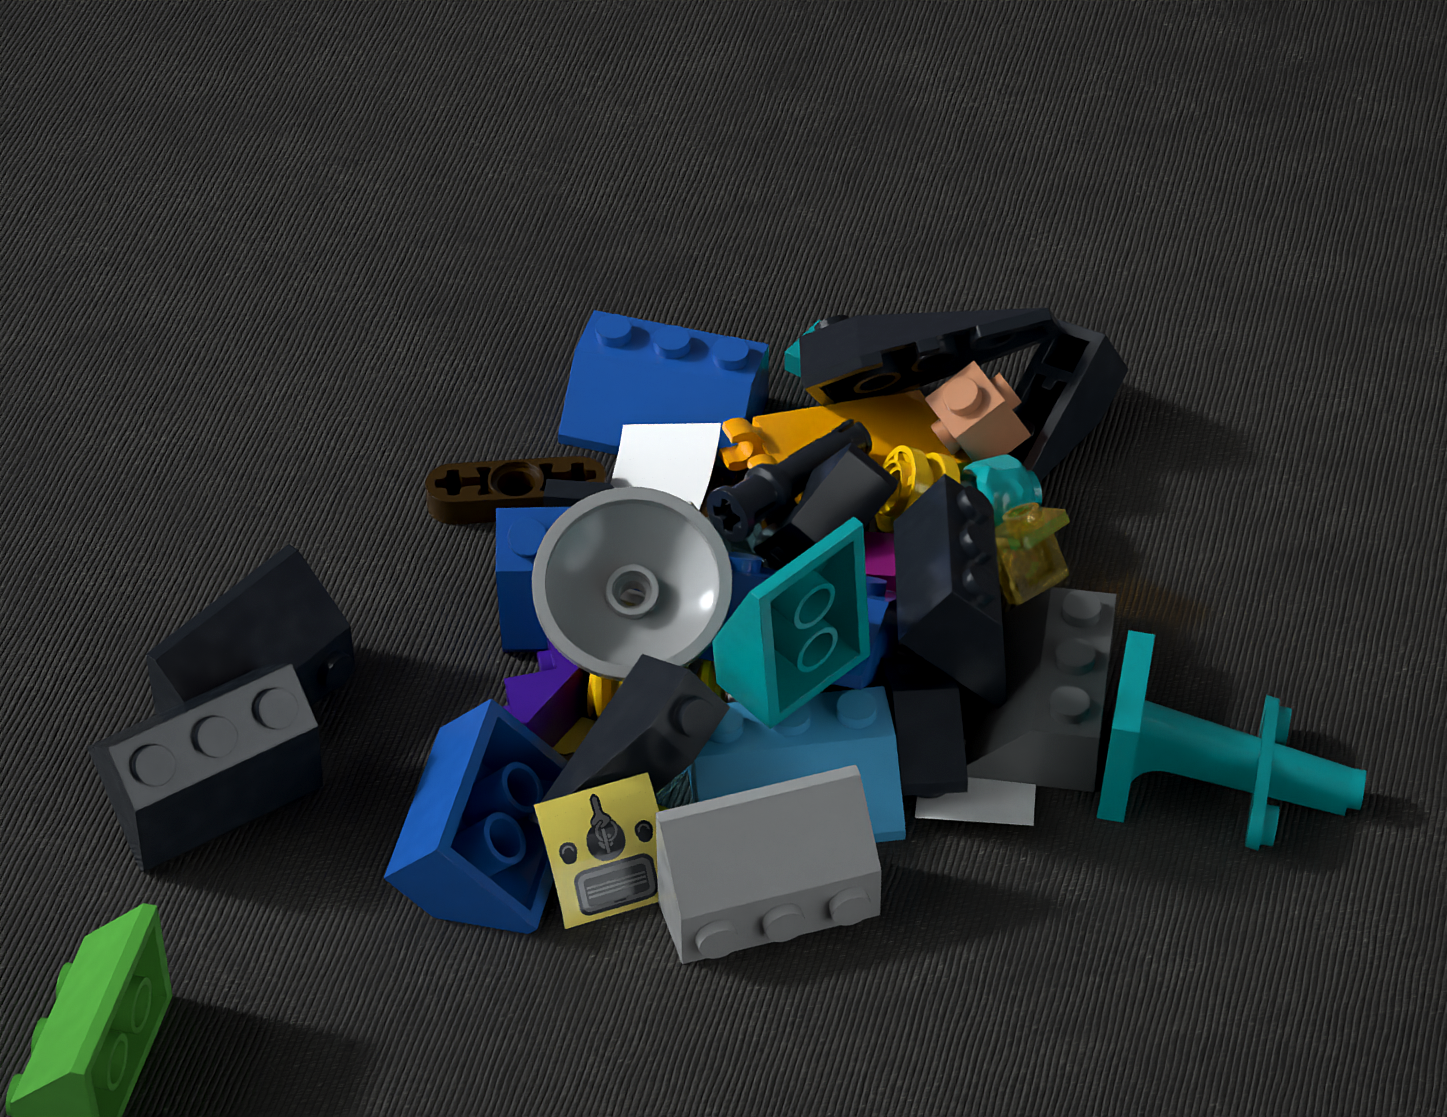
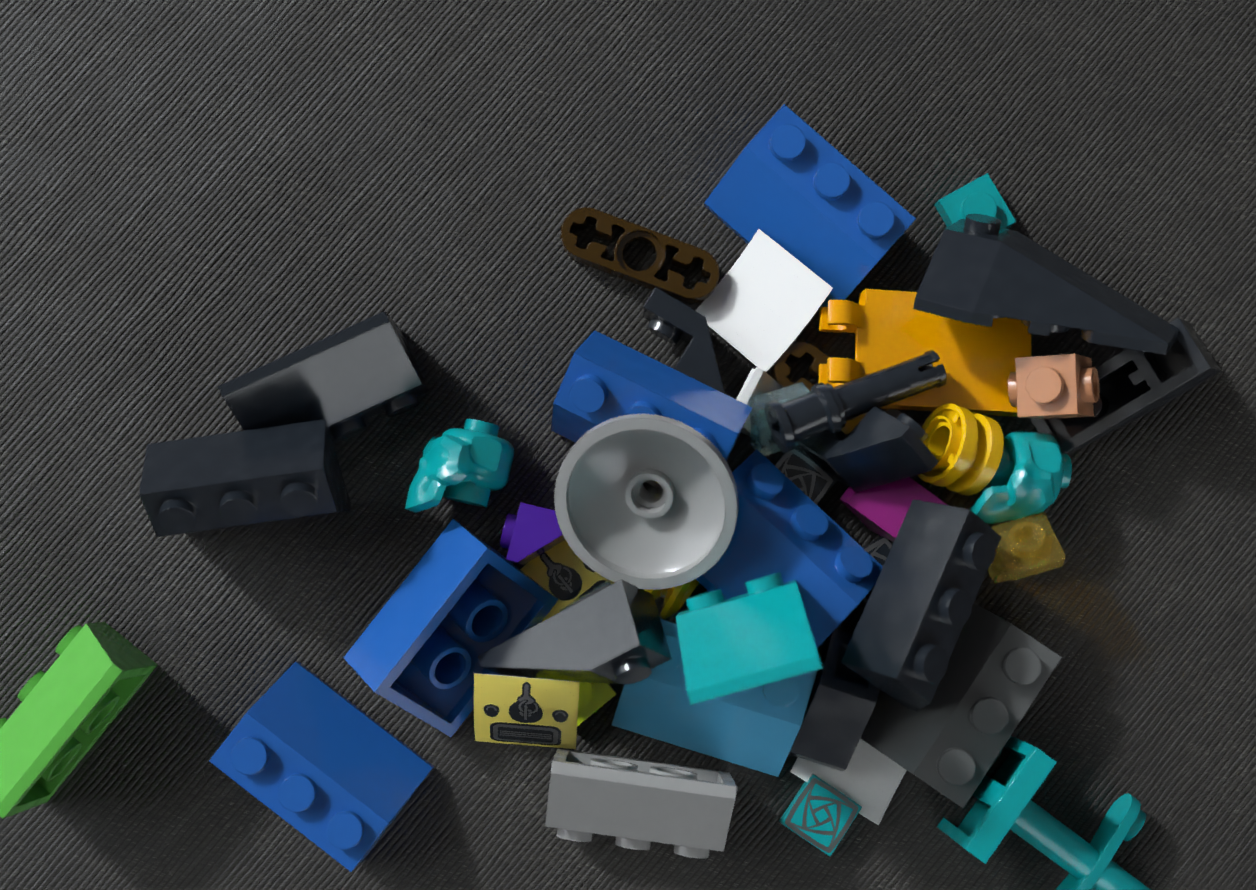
camera: 25 degrees right, 40 degrees up
(404, 999) = (322, 765): none -> blue slope
(425, 684) = (461, 467): none -> teal head
(968, 843) = (820, 814): none -> tile

